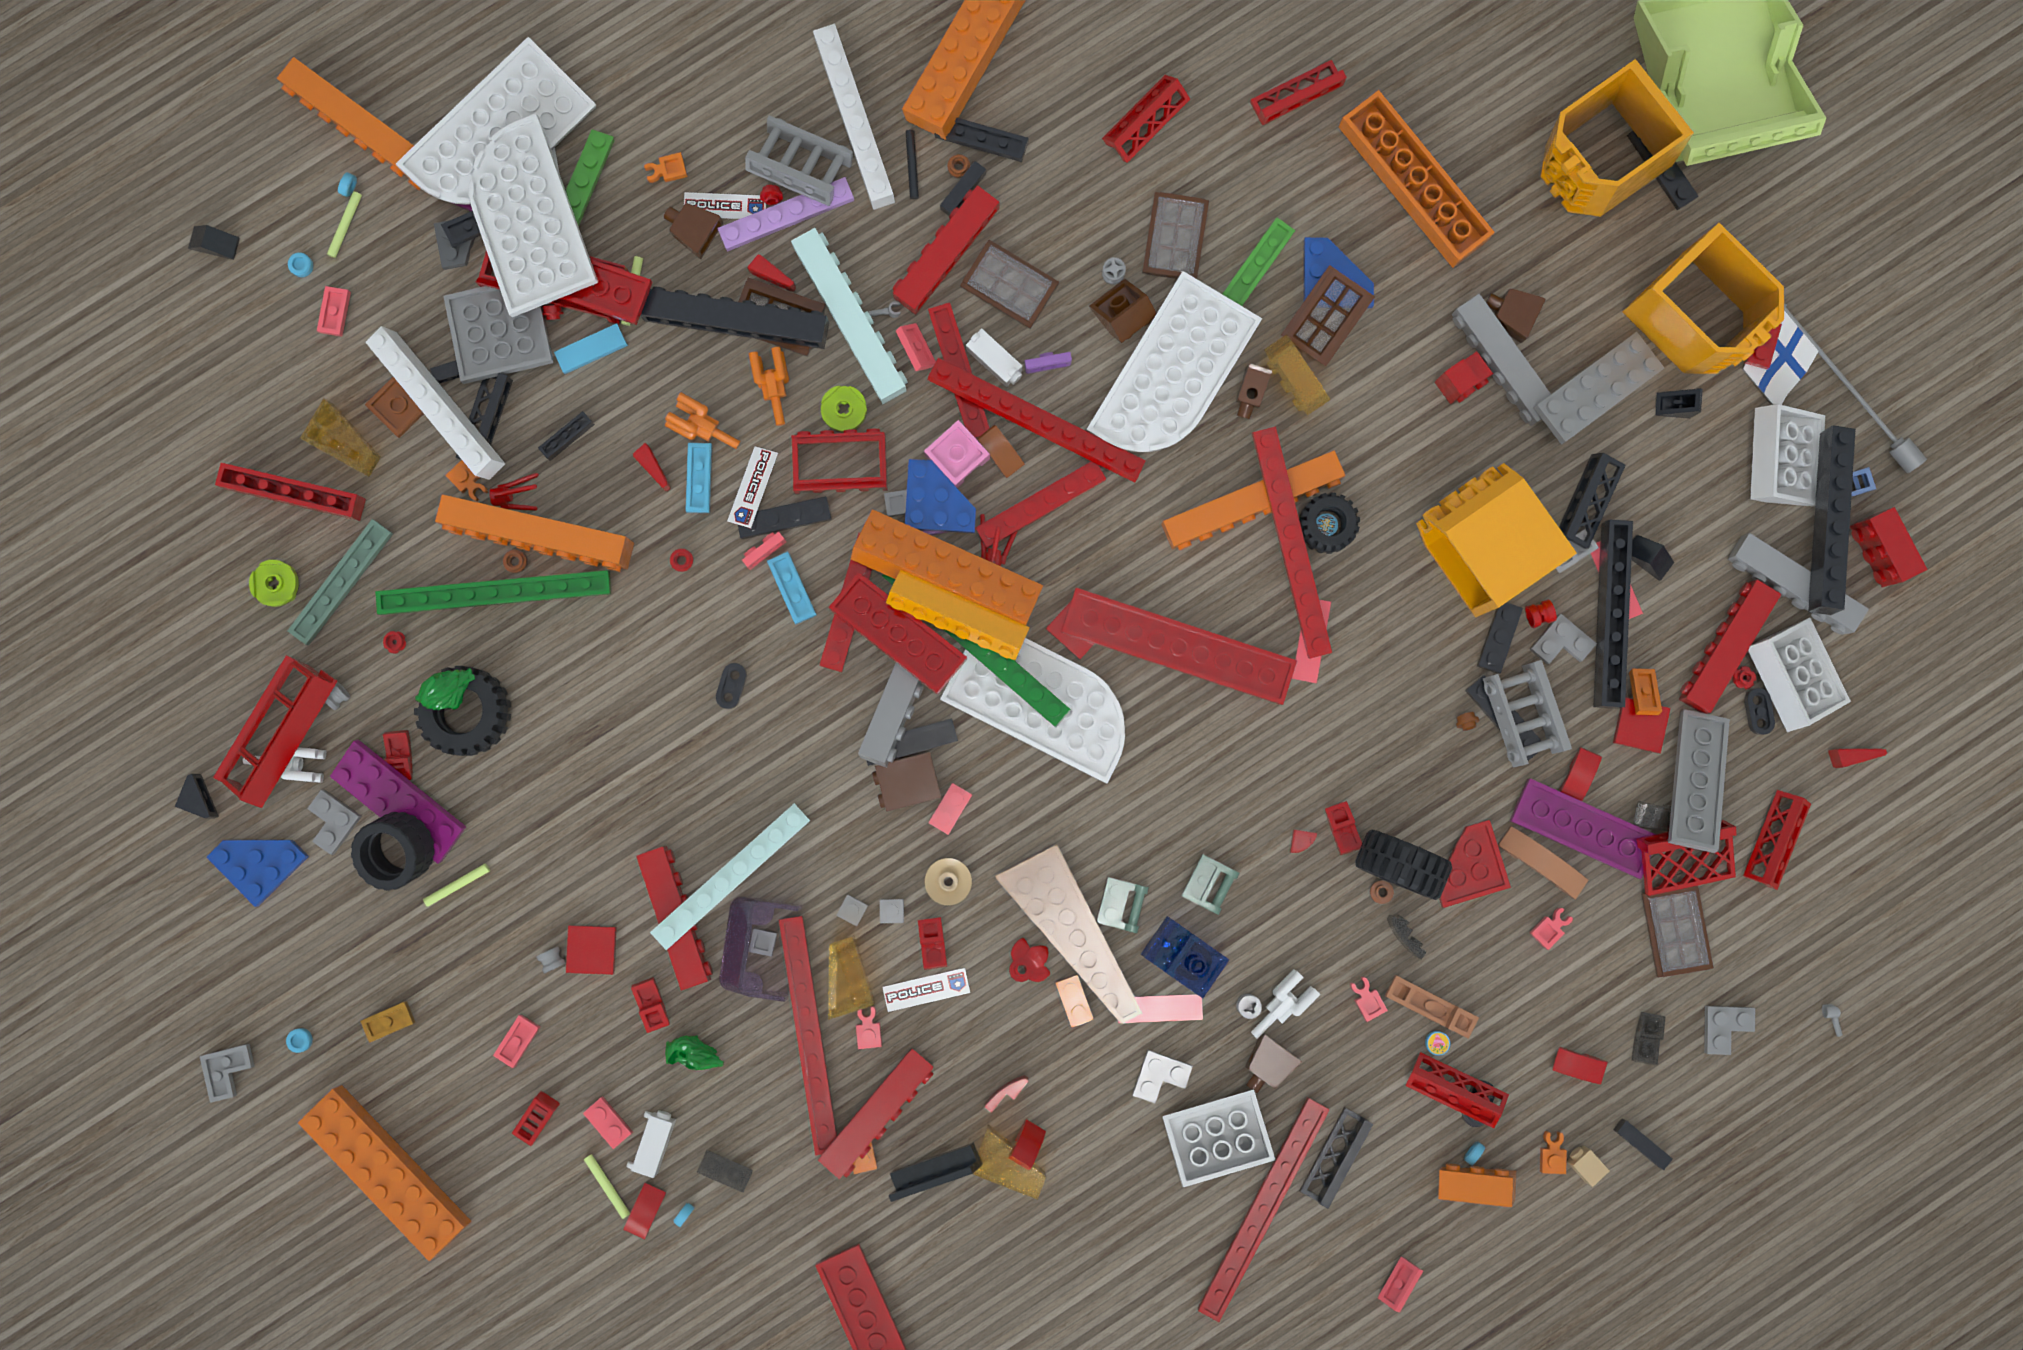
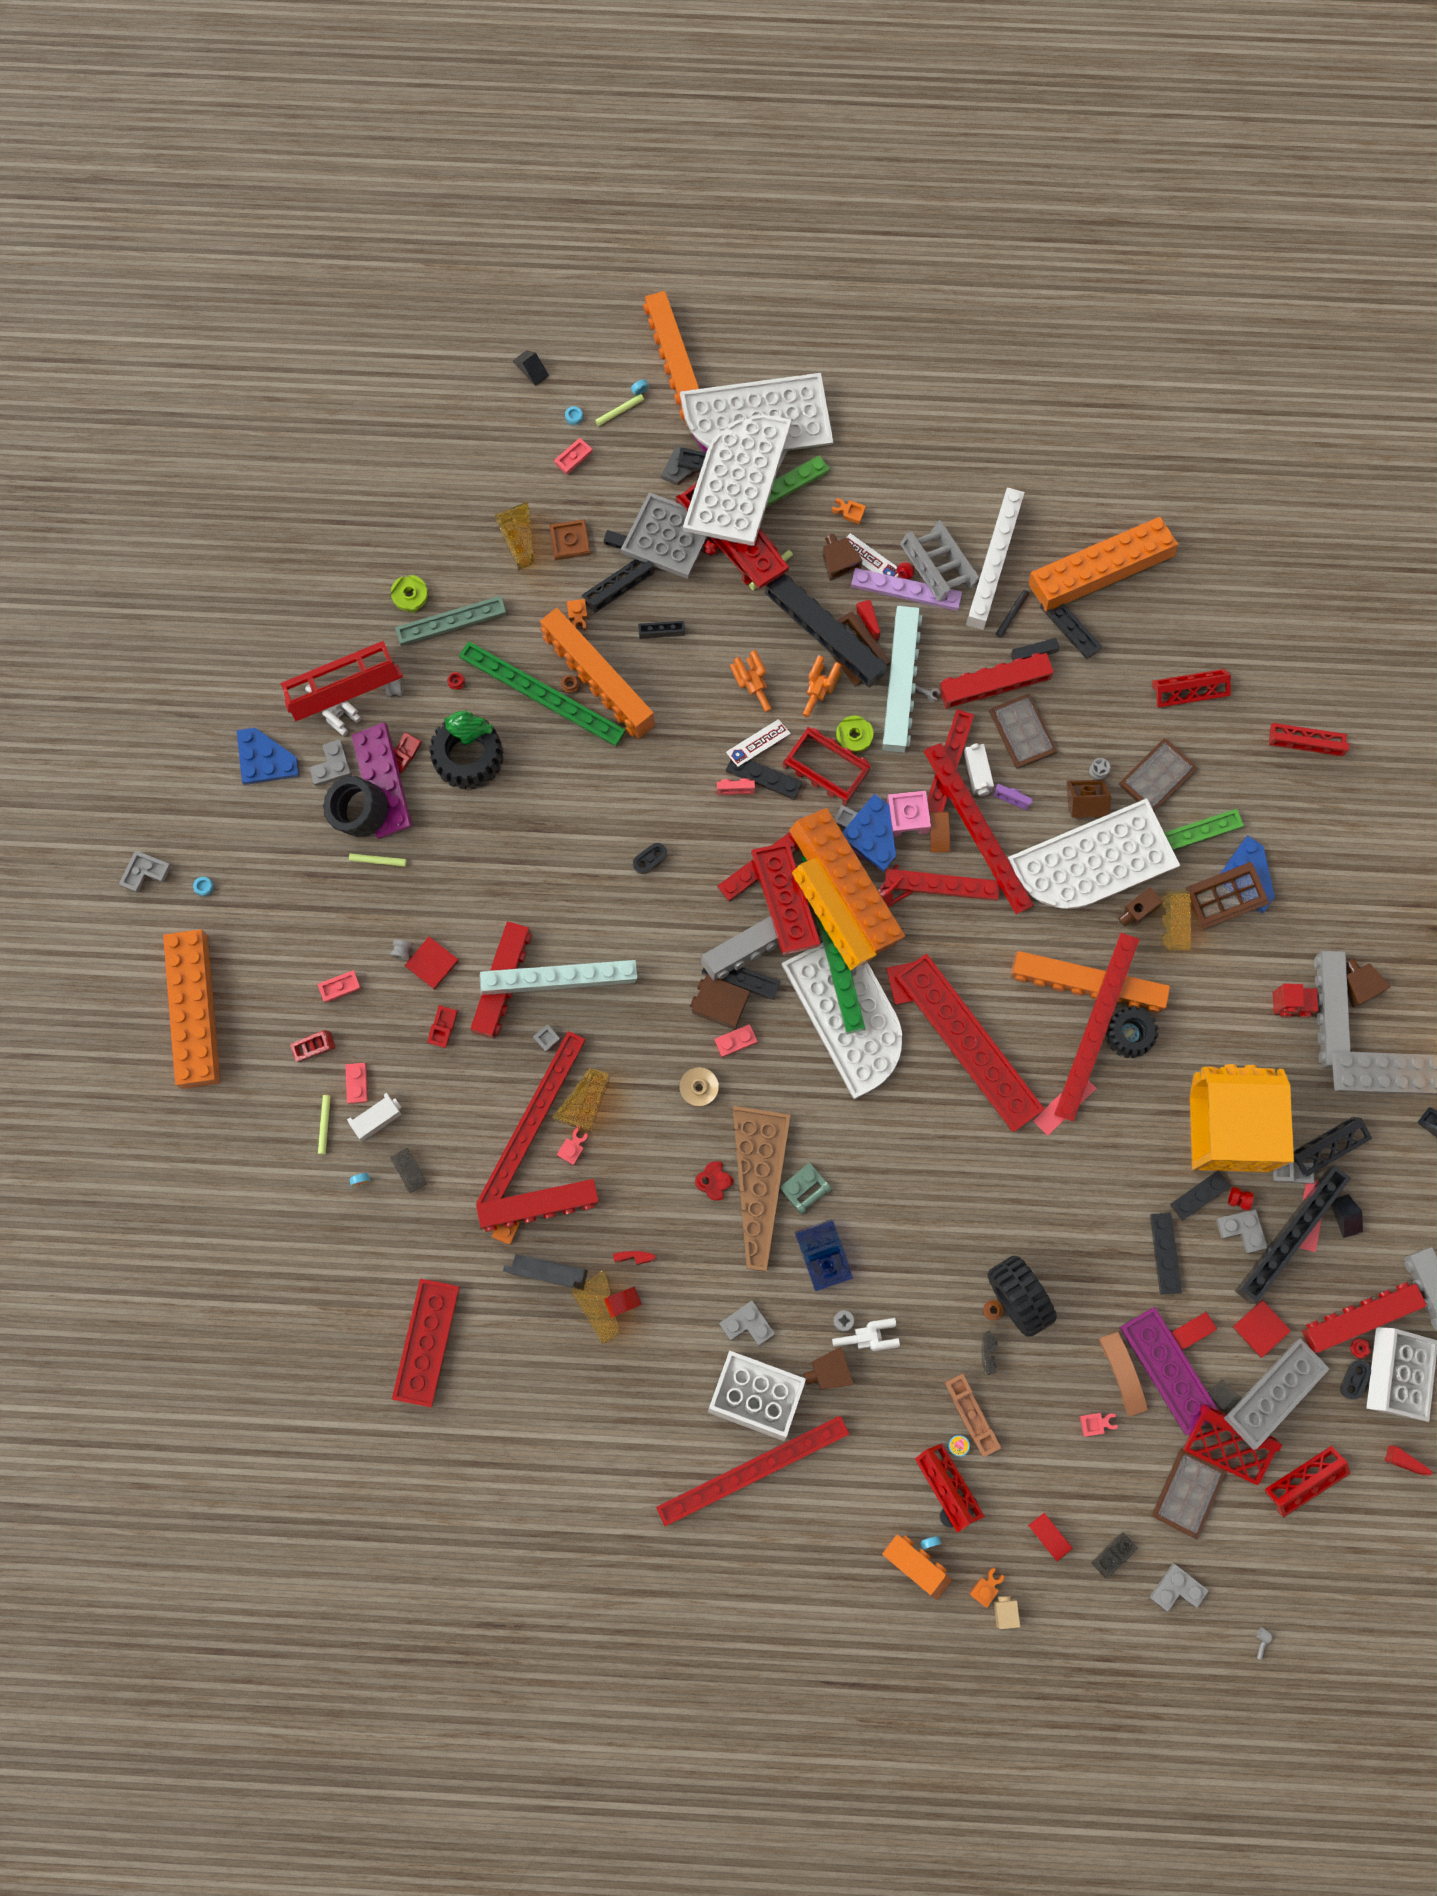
camera: 40 degrees right, 10 degrees down
(196, 798) = (259, 689): black slope -> none
(290, 491) = (463, 544): red brick -> none
(387, 1021) = (268, 914): pearl gold plate -> none
(435, 403) = (594, 552): white brick -> none
(503, 494) = (595, 638): red plant -> none
(590, 348) = (717, 587): medium azure tile -> none
(644, 1211) = (336, 1158): red slope -> none
(648, 461) = (702, 677): red slope -> none
(681, 553) = (674, 752): red plate -> none
(692, 1053) = (445, 1076): green hair -> none
(698, 477) = (727, 713): medium azure tile -> none
(742, 914) = (513, 1044): clear purple windscreen -> none
(791, 588) = (736, 824): medium azure tile -> none
(852, 910) = (620, 1060): light grey plate -> none
(891, 910) = (646, 1080): light grey plate -> none
(915, 347) = (931, 727): coral plate -> none
(926, 989) = (631, 1149): white sticker -> none
(932, 943) = (658, 1121): red slope -> none
(958, 159) = (1042, 629): dark orange plate -> none
(1074, 1000) = (725, 1229): plate -> none
(1169, 1008) = (786, 1283): sticker -> none
(1202, 881) = (874, 1211): plate -> none
(1301, 840) = (961, 1235): tile -> none
(1343, 828) = (997, 1246): red slope -> none
(1344, 1162) = (834, 1479): black fence -> none
(1369, 1002) = (930, 1381): coral plate -> none
(1400, 1284) = (811, 1597): coral plate -> none
(1415, 179) = (1352, 848): orange brick -> none
(1467, 721) = (1136, 1235): dark orange plate -> none
(1475, 866) = (1070, 1340): red plate -> none
(1546, 707) = (1201, 1263): light grey fence -> none
(1642, 1144) = (1058, 1629): black piece -> none
(1645, 691) = (1280, 1305): orange plate -> none

